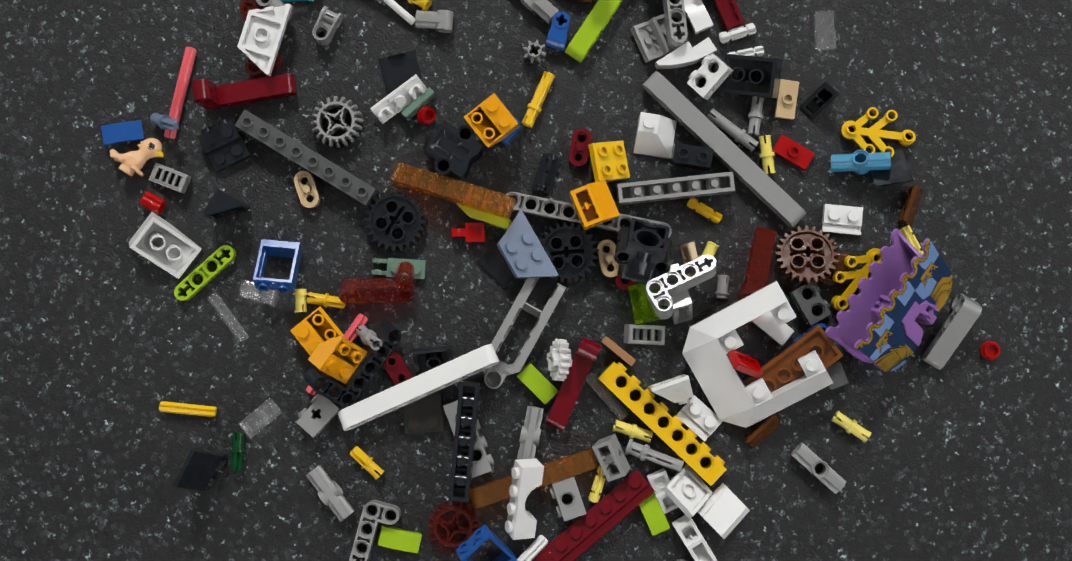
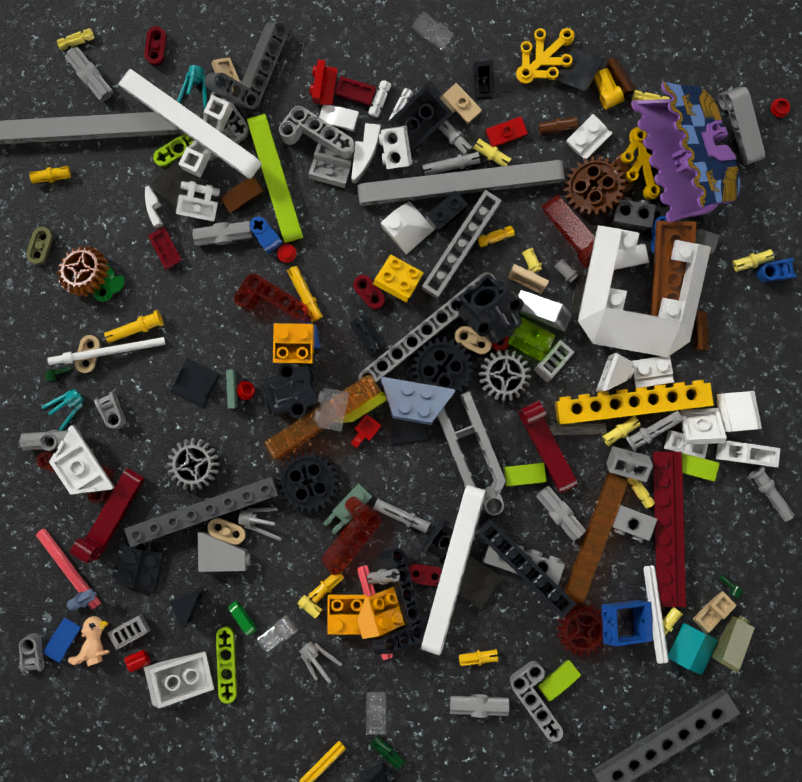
camera: 55 degrees left, 0 degrees up
(90, 120) = (31, 657): none -> light grey piece
(228, 317) = (276, 674): clear axle -> none
(249, 256) = (242, 618): none -> green beam
(264, 329) = (309, 653): none -> light grey plant
(278, 249) = (256, 590): blue window -> none
(284, 199) = (220, 555): none -> light grey slope
(307, 416) = (412, 676): light grey brick -> none
(330, 198) = (249, 519): none -> light grey plant
(399, 99) = (215, 401): white plate -> none
(427, 313) = (401, 515): none -> light grey pin
(440, 21) = (180, 319): light grey piece -> none
(464, 191) = (331, 409): none -> clear bracket
(515, 81) = (276, 300): none -> clear red beam
(526, 476) = (593, 543): white arch -> none
(535, 46) = (268, 270): light grey gear -> none
(558, 60) = (286, 253): none -> red plate
(559, 359) = (521, 442): white gear -> none
(594, 204) = (423, 317): light orange slope -> none
(615, 295) = (503, 391): none -> light grey gear
(618, 350) = (550, 391): medium nougat tile -> none
(702, 268) = (540, 297): light grey beam -> none
(745, 364) = (642, 301): red plate -> none
(826, 476) = (775, 310): light grey piece -> none
(831, 188) = (558, 125): none -> reddish brown pin
(860, 454) = (779, 270): none -> blue piece
(871, 161) = (563, 77): dark azure piece -> none
(889, 208) = (609, 93): none -> yellow piece

